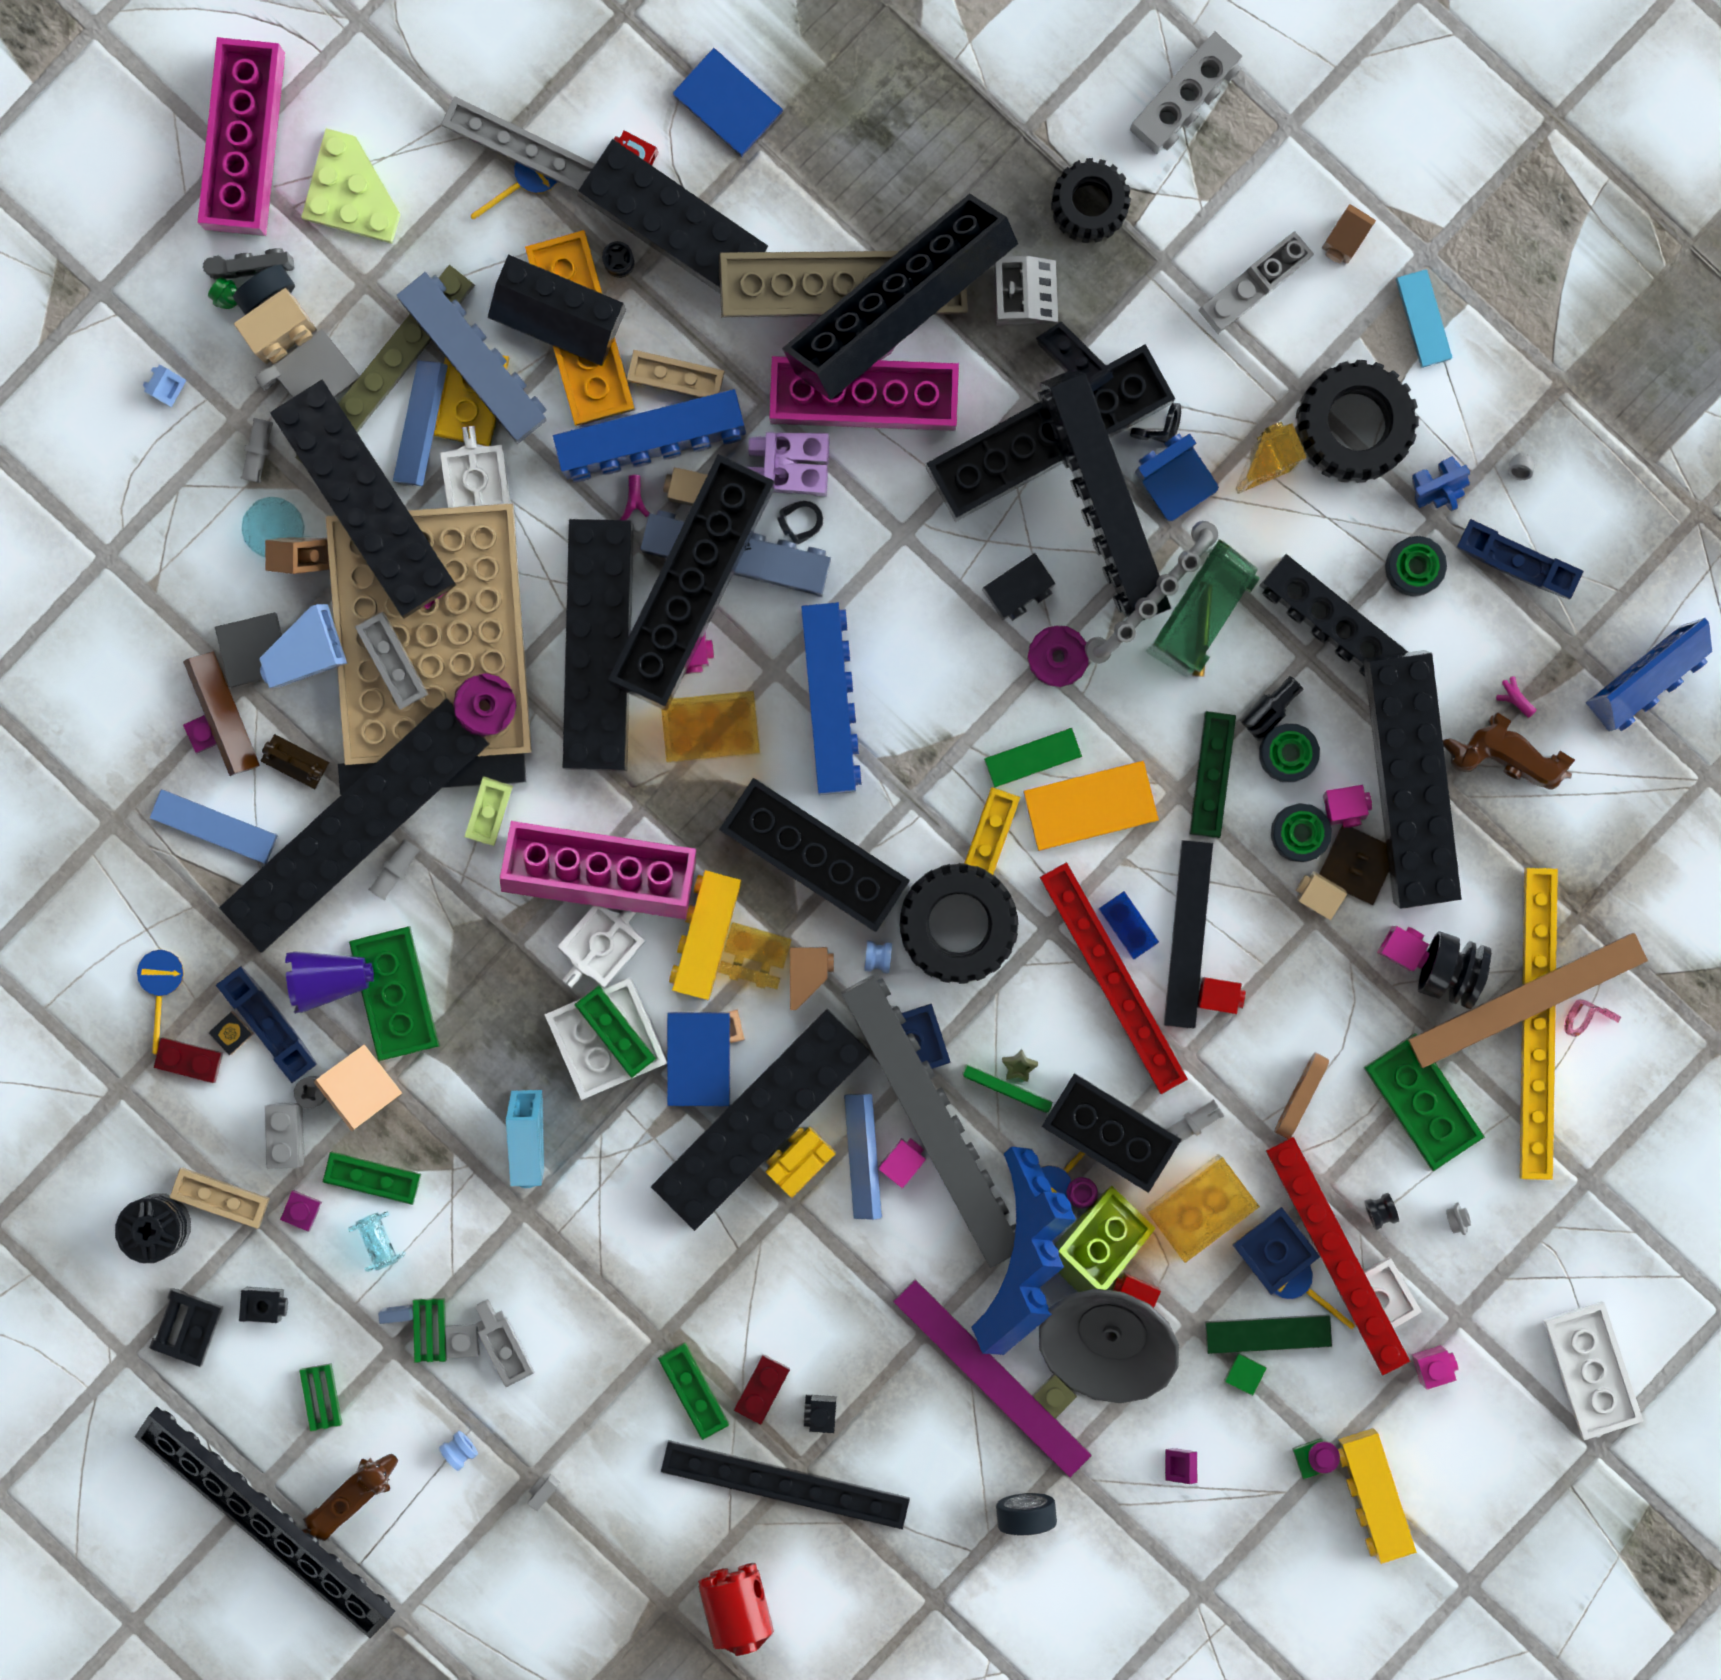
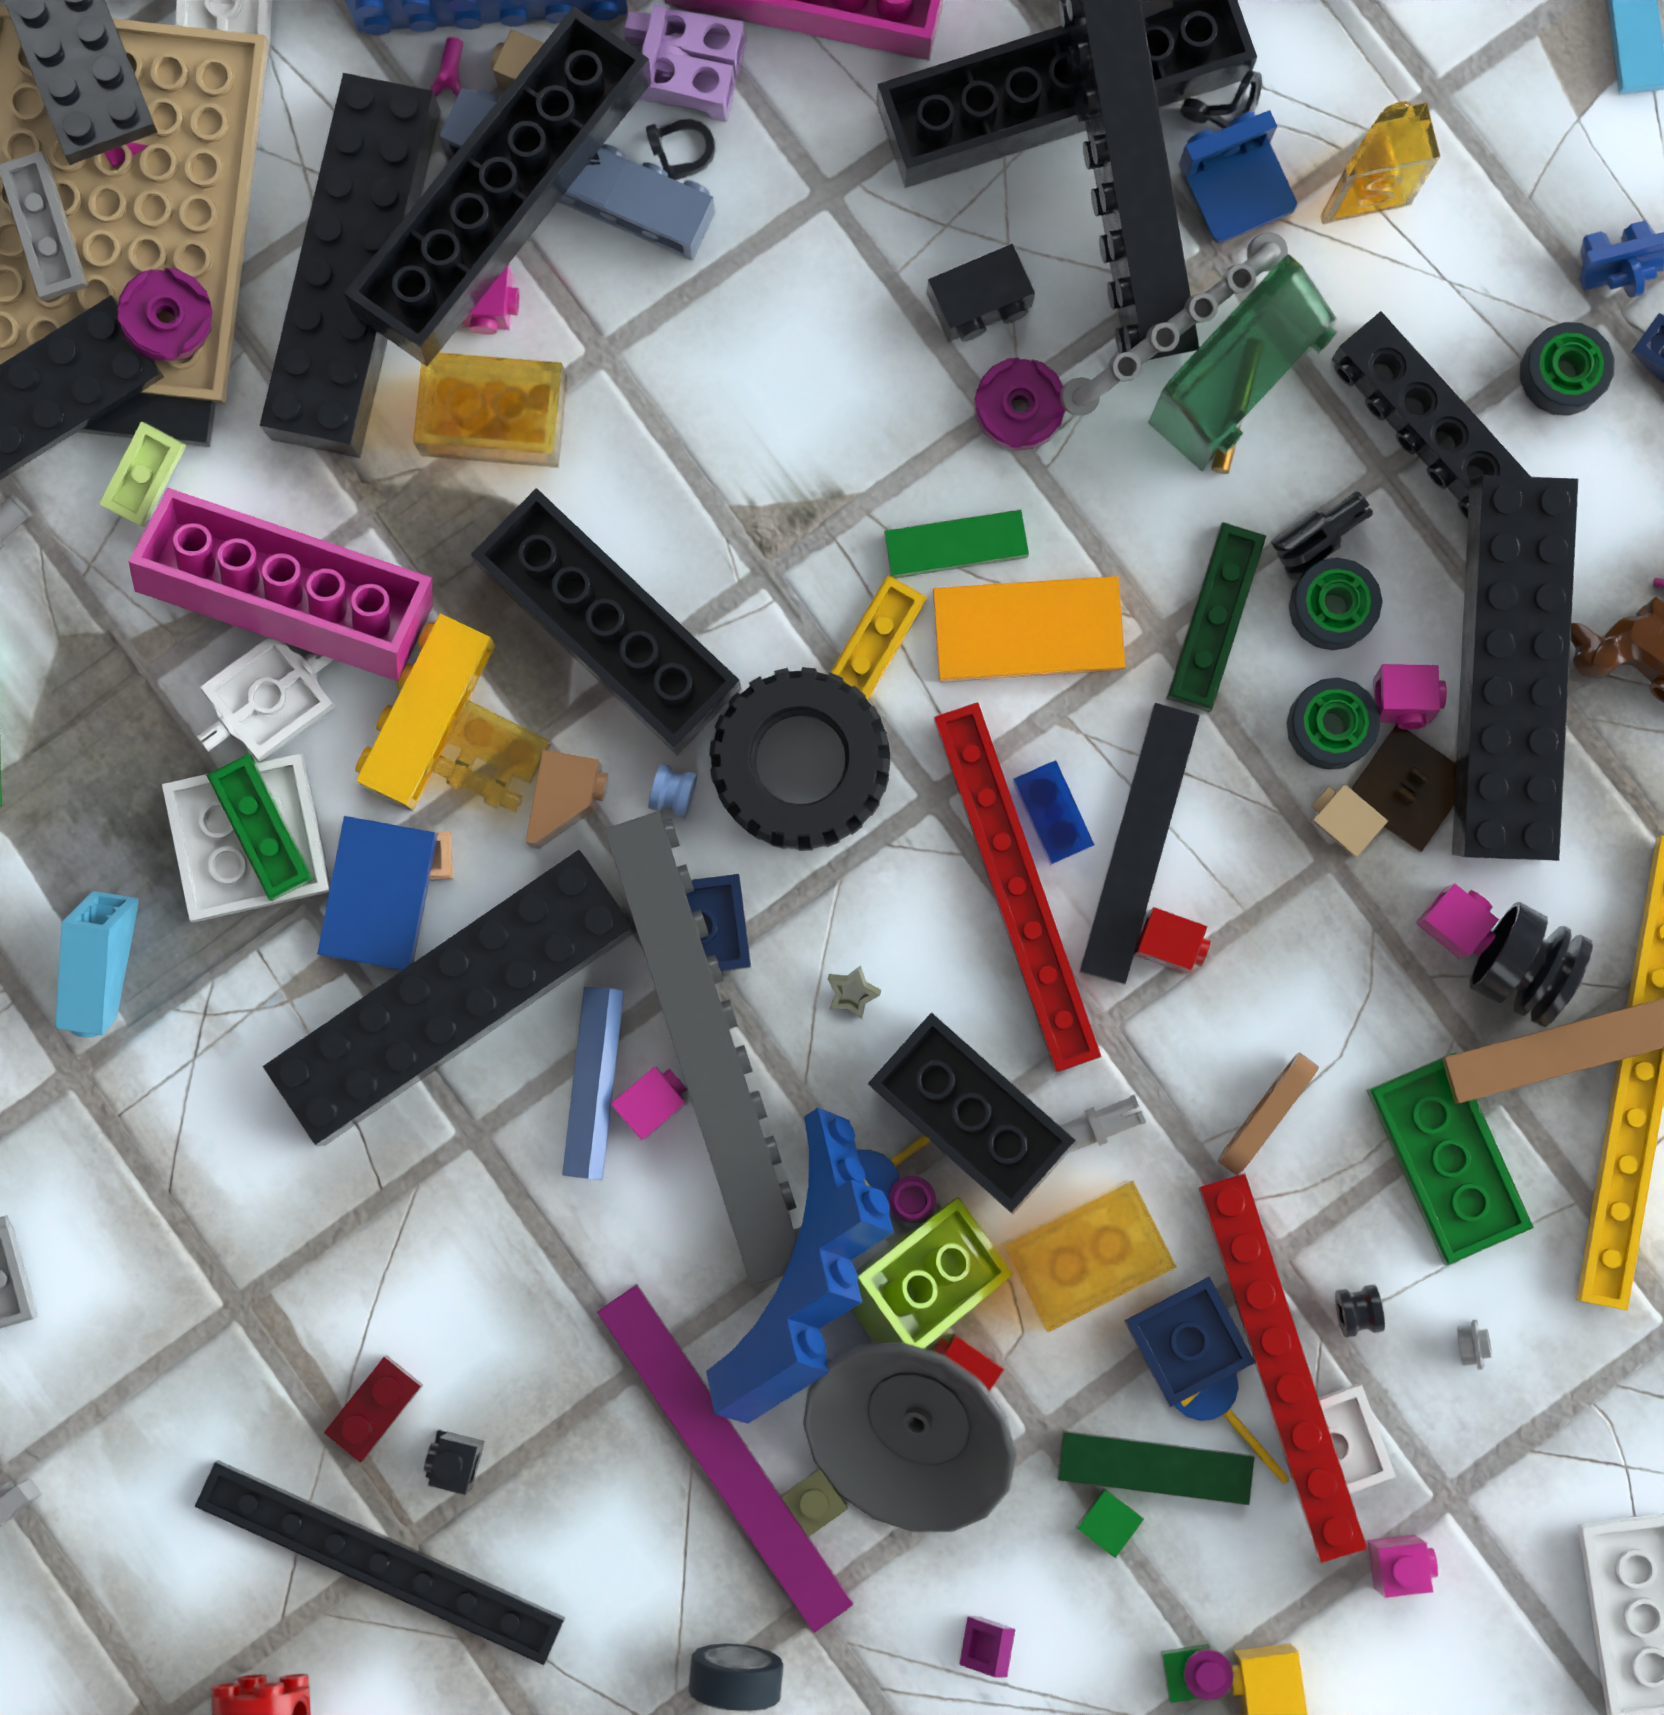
camera: 10 degrees right, 5 degrees down
(693, 1391) = (270, 1392): green tile -> none
(799, 1161) = (496, 1072): yellow brick -> none
(829, 700) = (670, 398): blue brick -> none
(1007, 1089) = (827, 1021): green tile -> none
(1393, 402) = (1549, 97): black tyre -> none

